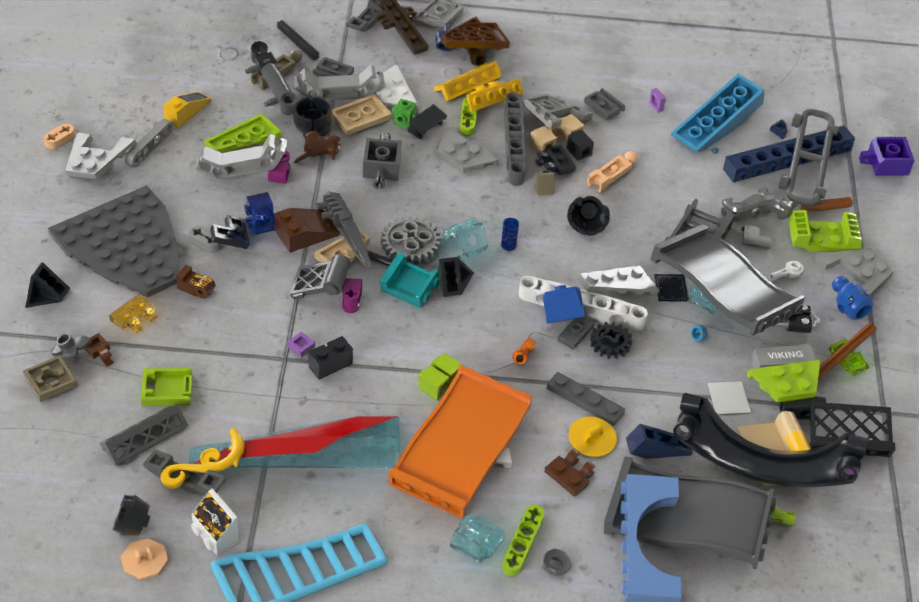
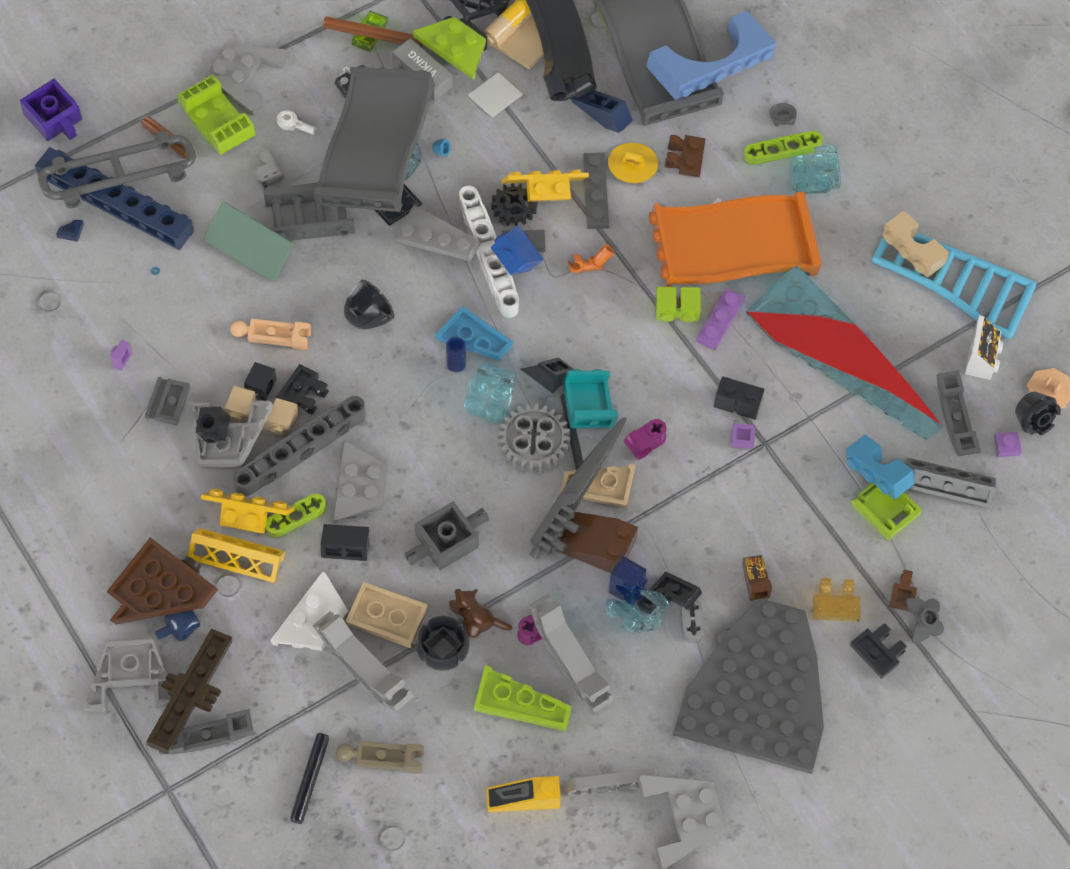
camera: 125 degrees left, 15 degrees up
(45, 287) = (881, 700): black slope -> none
(54, 368) = (981, 594): dark tan piece -> none
(78, 305) = (875, 654): none -> black plate
(130, 488) = (1007, 444): none -> medium lavender plate
(206, 456) = (927, 406): yellow plant -> none
(210, 390) = (890, 478): none -> dark azure arch
(232, 201) = (633, 618): none -> clear light blue piece
(266, 66) = (408, 740): dark grey piece -> none
(330, 67) = (337, 695): dark grey plate -> none
(332, 278) = (653, 452): dark grey piece -> none
(363, 543) = (925, 257): none -> tan arch
(404, 112) = (351, 568): bright green brick -> none
(406, 397) = (720, 319): none -> medium lavender plate
(523, 259) = (476, 333): none -> dark azure wing
(545, 183) = (346, 379): dark tan slope -> none
(562, 99) = (212, 424): none -> black brick
(610, 358) = (548, 186): none -> yellow bracket
(696, 191) = (249, 241): none -> sand green tile
(720, 114) = (104, 284): dark azure slope -> none
(757, 205) = (223, 185): flat silver animal -> none
(852, 298) = (298, 51): blue piece -> none

